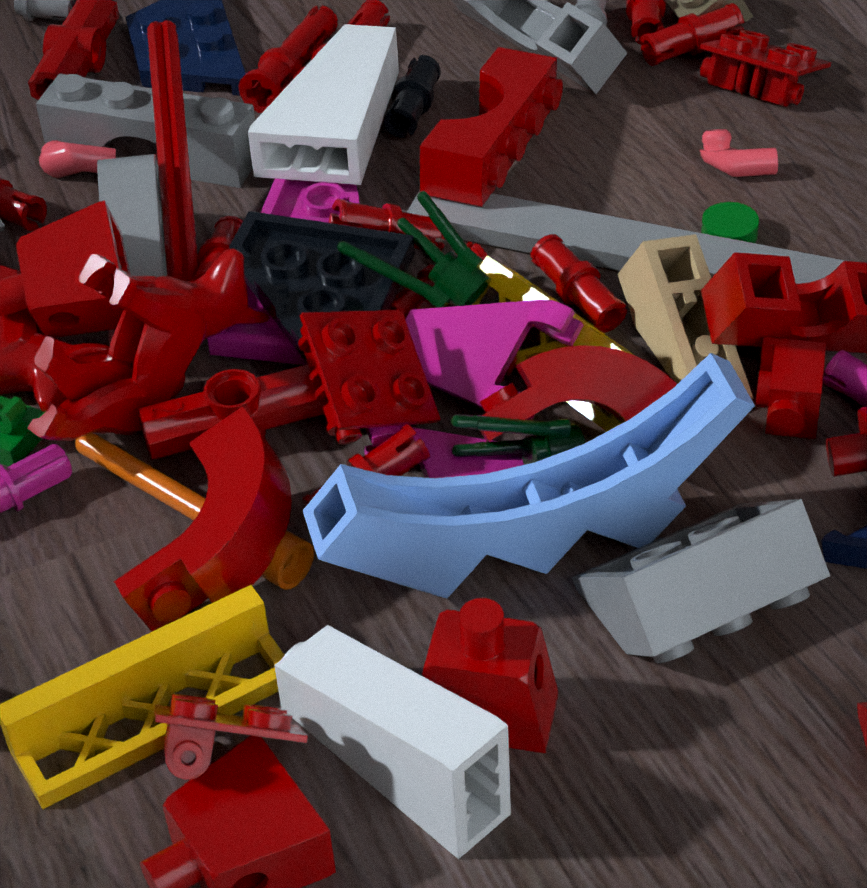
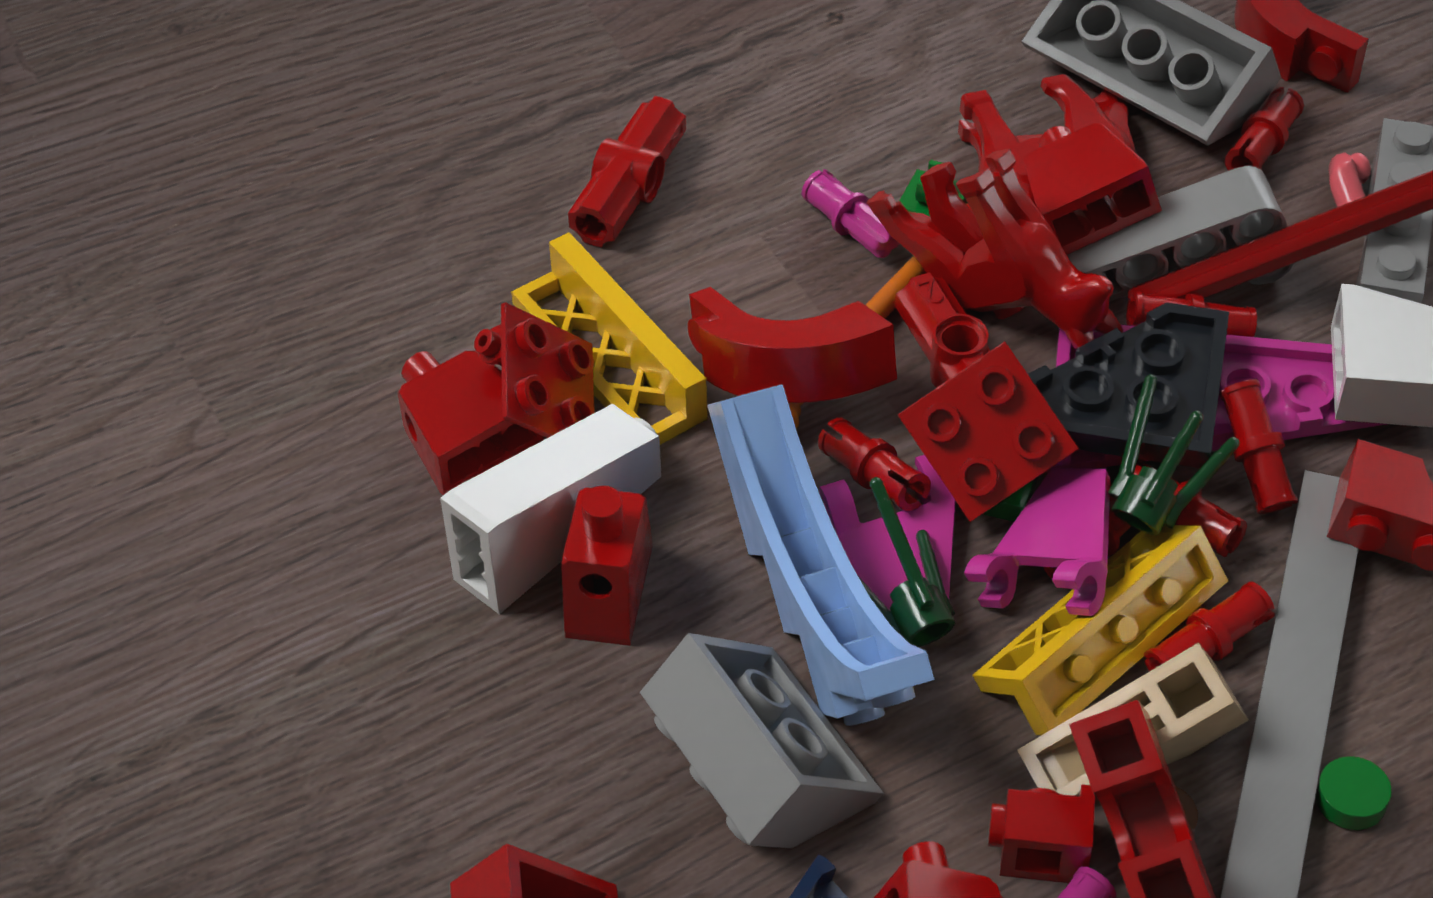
camera: 85 degrees right, 5 degrees up
(583, 374) = (980, 635): red arch -> none

